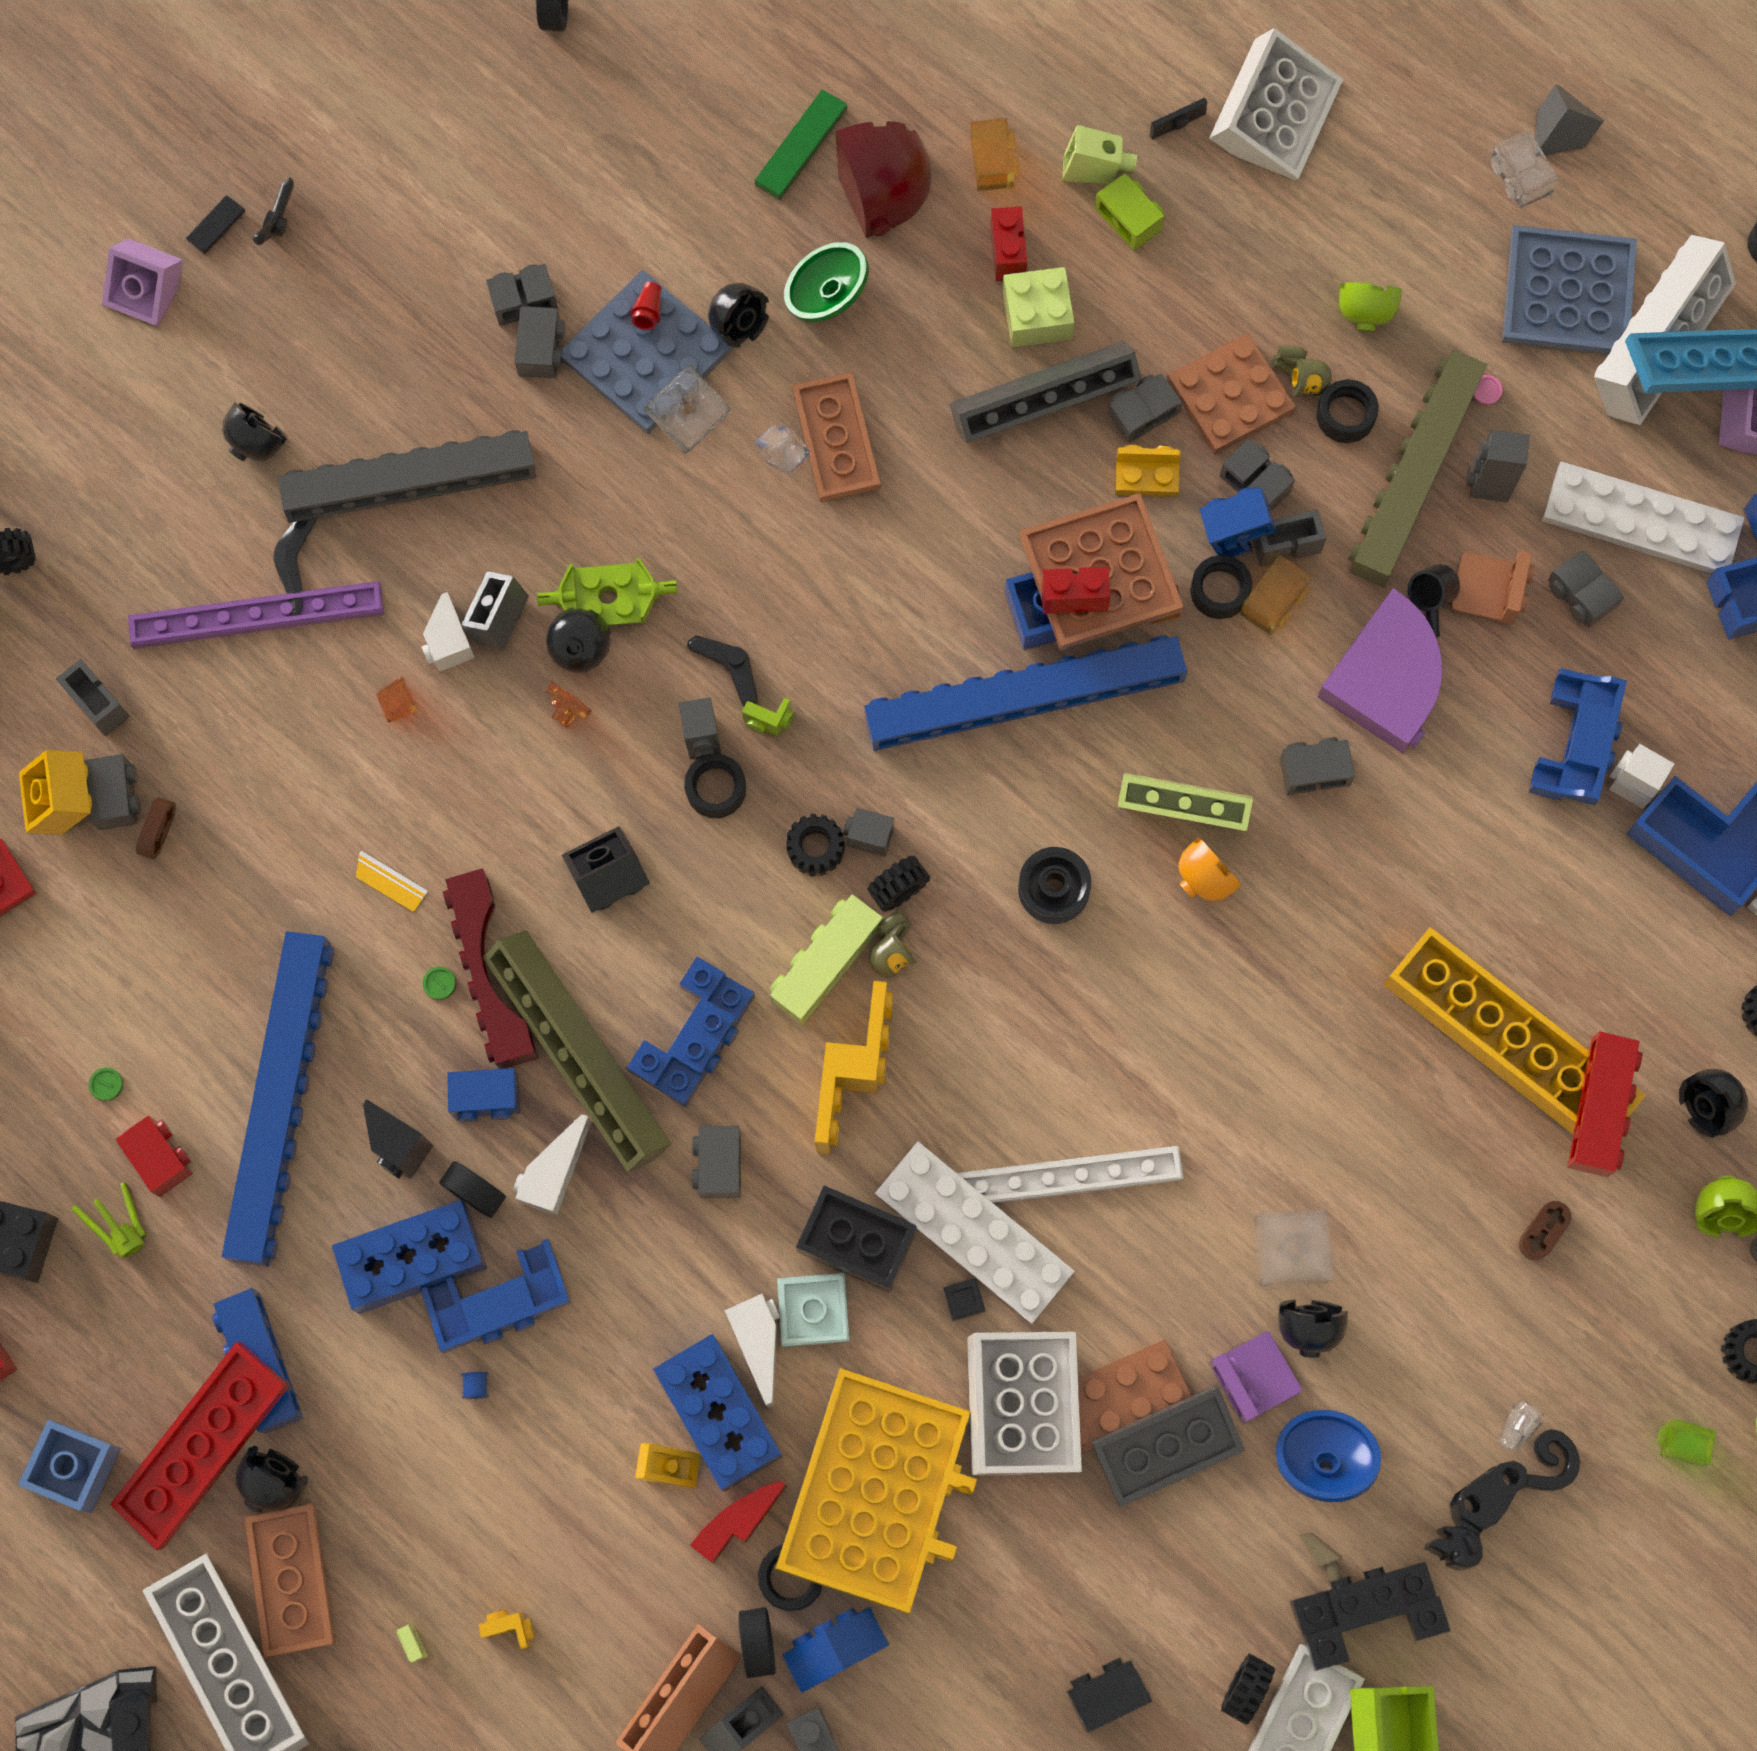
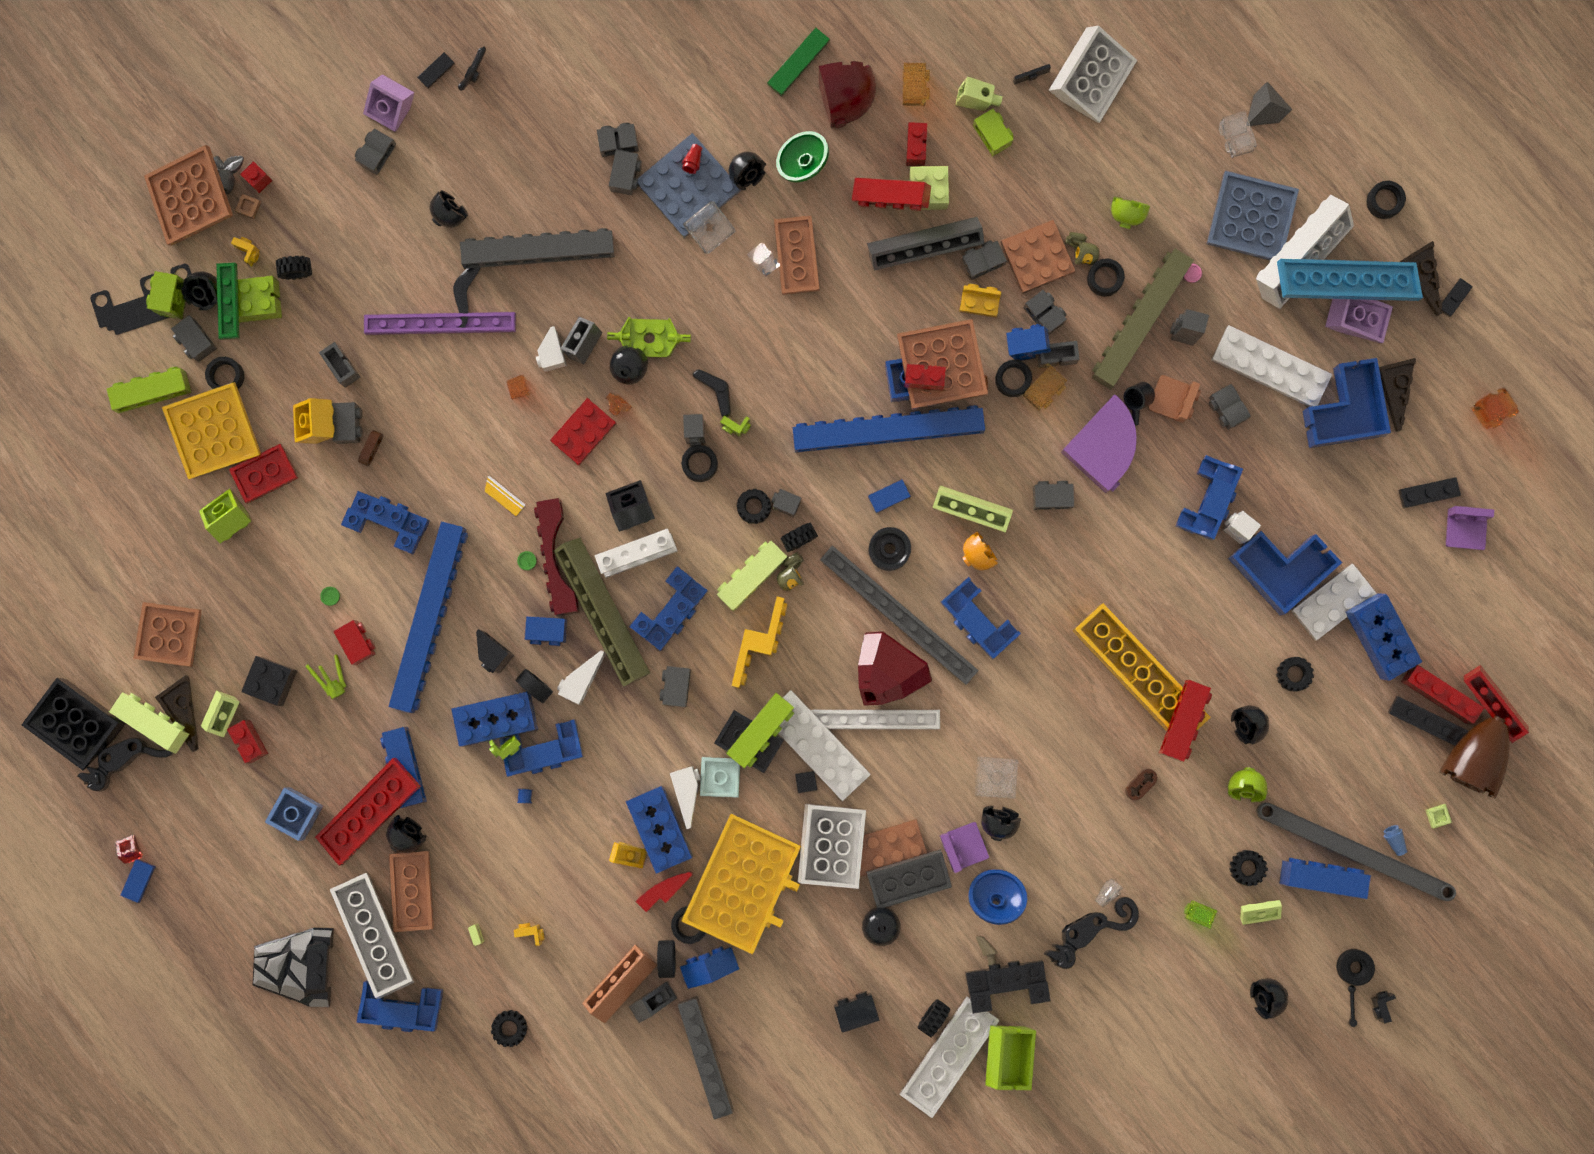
camera: 10 degrees right, 10 degrees up
(126, 358) = (375, 151): none -> dark grey brick
(196, 936) = (396, 518): none -> blue bracket
(439, 1300) = (510, 747): none -> lime bracket
(513, 759) = (583, 431): none -> red plate
(625, 942) = (636, 553): none -> white fence
(874, 1213) = (759, 731): none -> lime brick
(979, 318) = (891, 193): none -> red brick
(1041, 801) = (889, 496): none -> blue tile
(1082, 1086) = (889, 670): none -> dark red brick
(1086, 995) = (899, 615): none -> dark grey plate
(1137, 1553) = (879, 918): none -> black cylinder
(1217, 989) = (975, 623): none -> blue bracket

